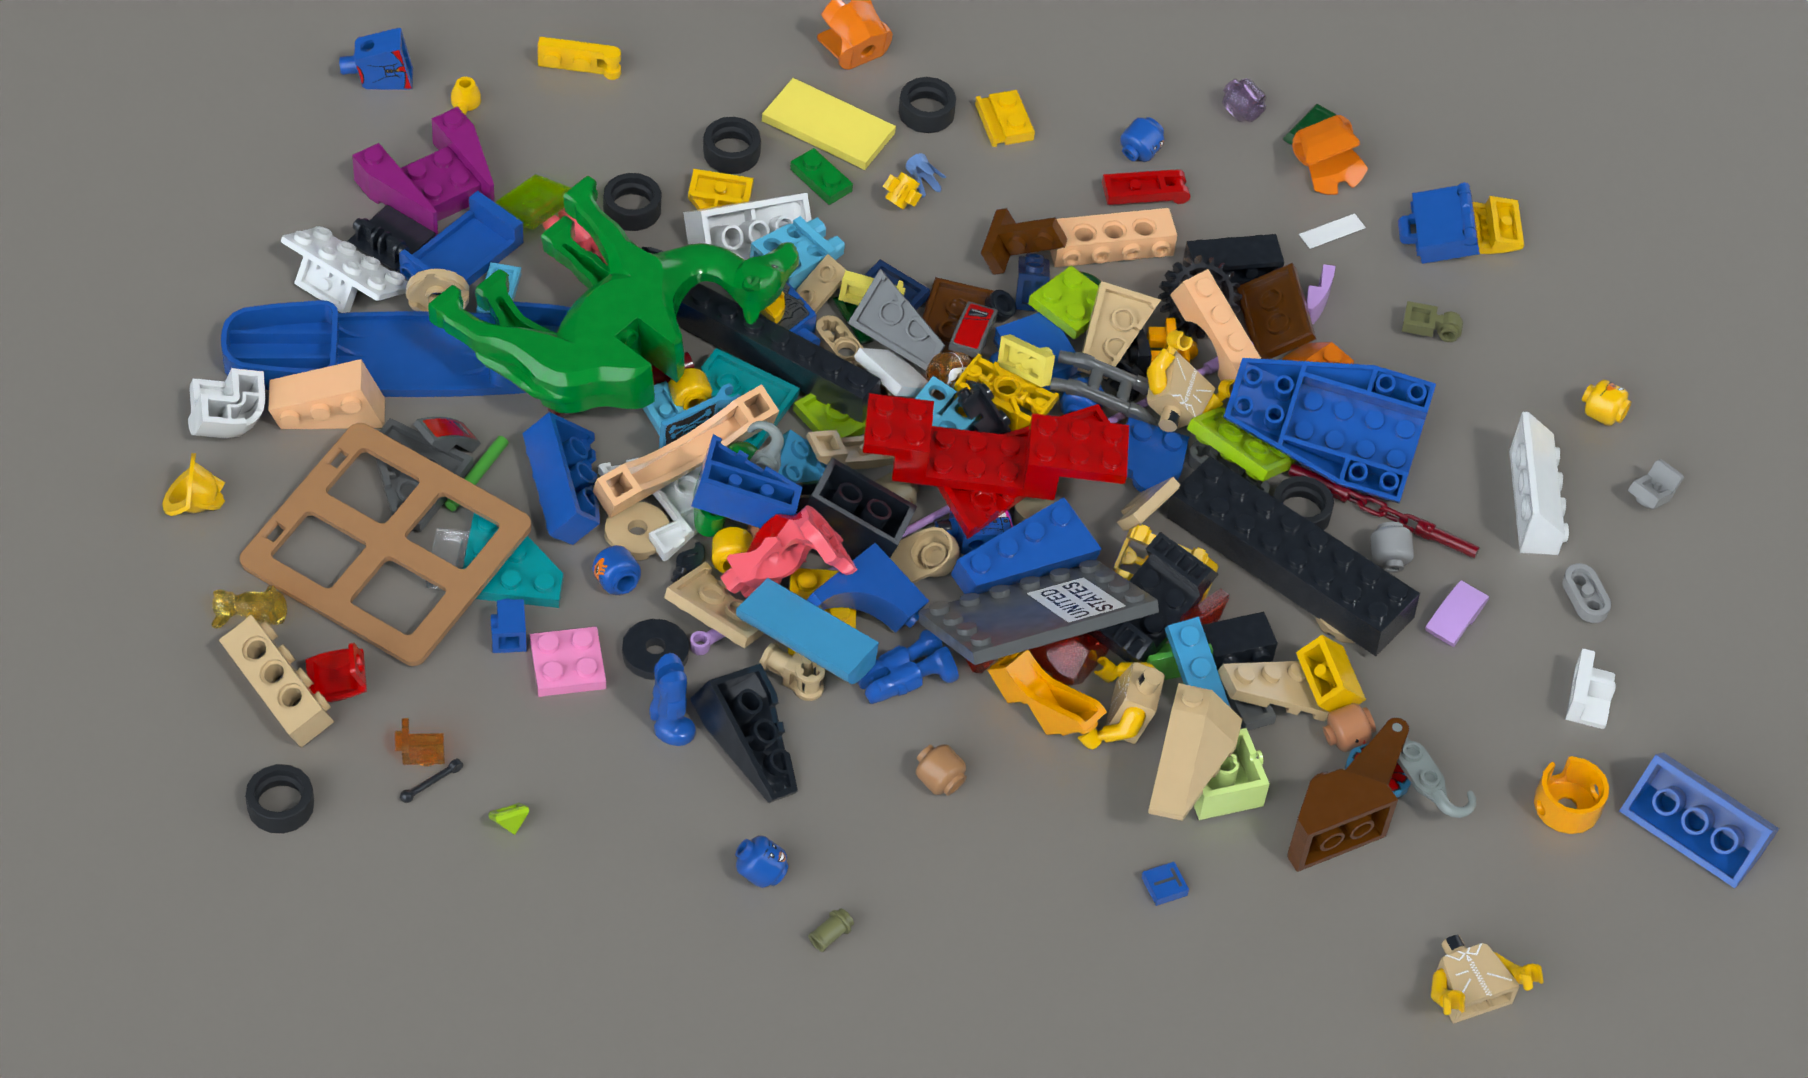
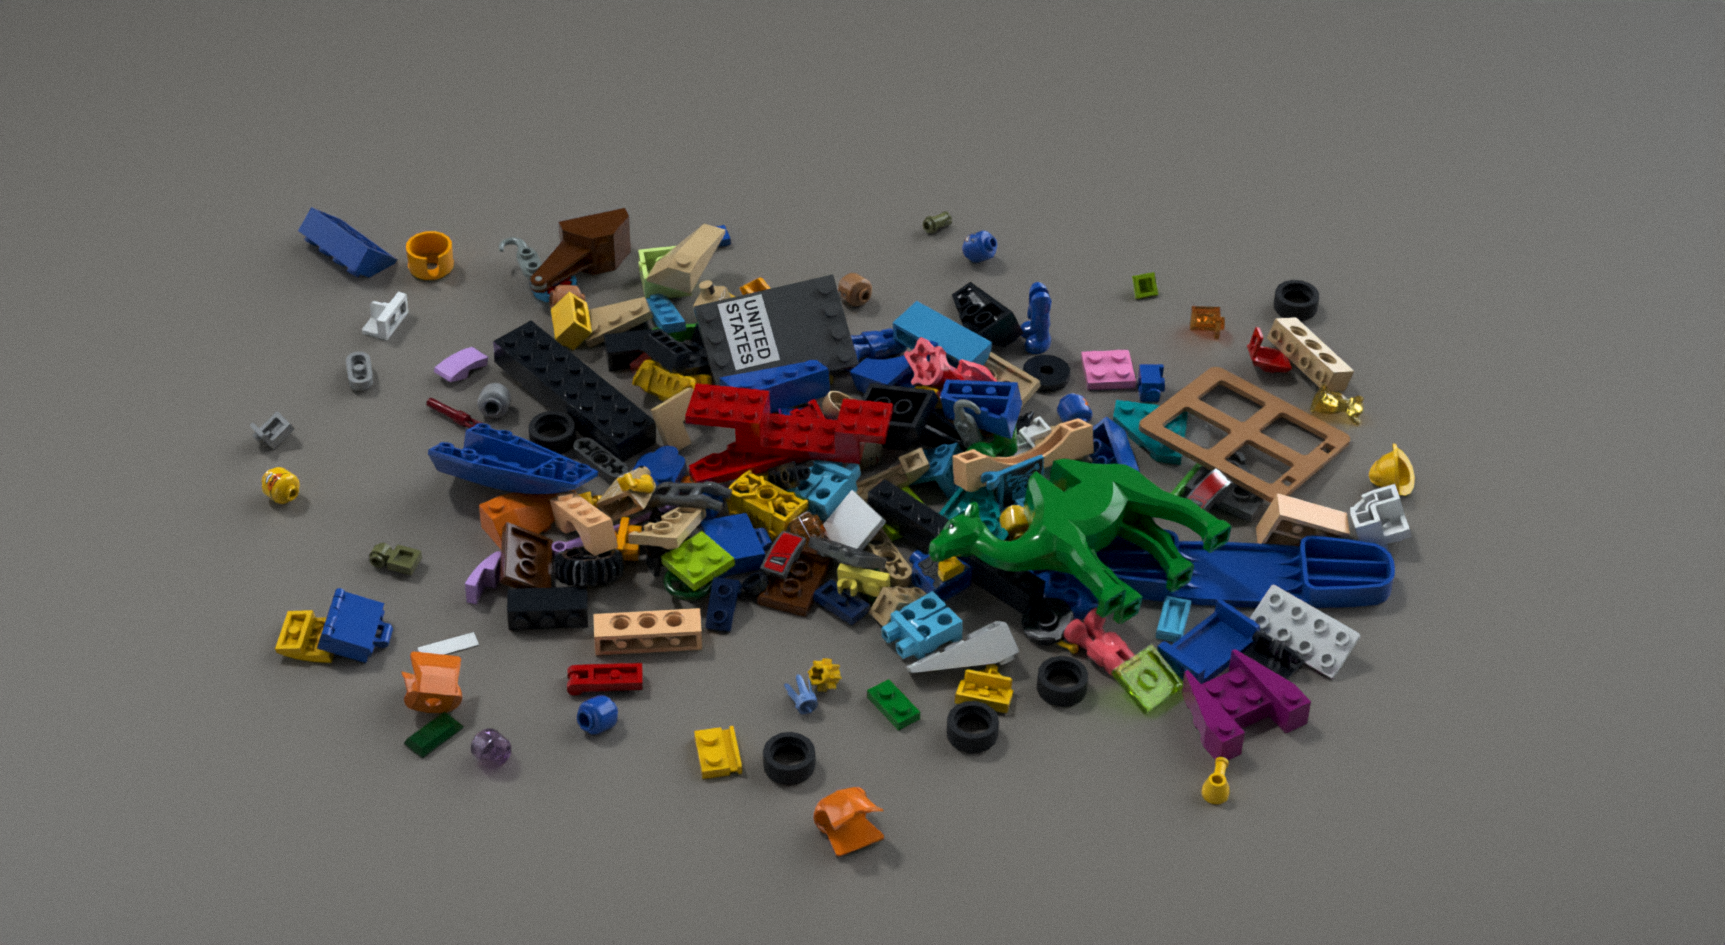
camera: 170 degrees left, 10 degrees down
(380, 61) = (1297, 803): blue torso -> none
(424, 283) = (1223, 580): tan tile -> none
(454, 766) = (1182, 316): black hinge -> none
(580, 56) = (1111, 813): yellow plate -> none
(828, 123) = (882, 752): light yellow tile -> none
(1013, 238) = (729, 619): reddish brown bracket -> none
(1026, 360) = (744, 508): light yellow tile -> none
(1239, 446) = (587, 451): lime plate -> none
(1477, 979) = (536, 174): tan torso -> none
(1537, 488) = (367, 427): white slope -> none

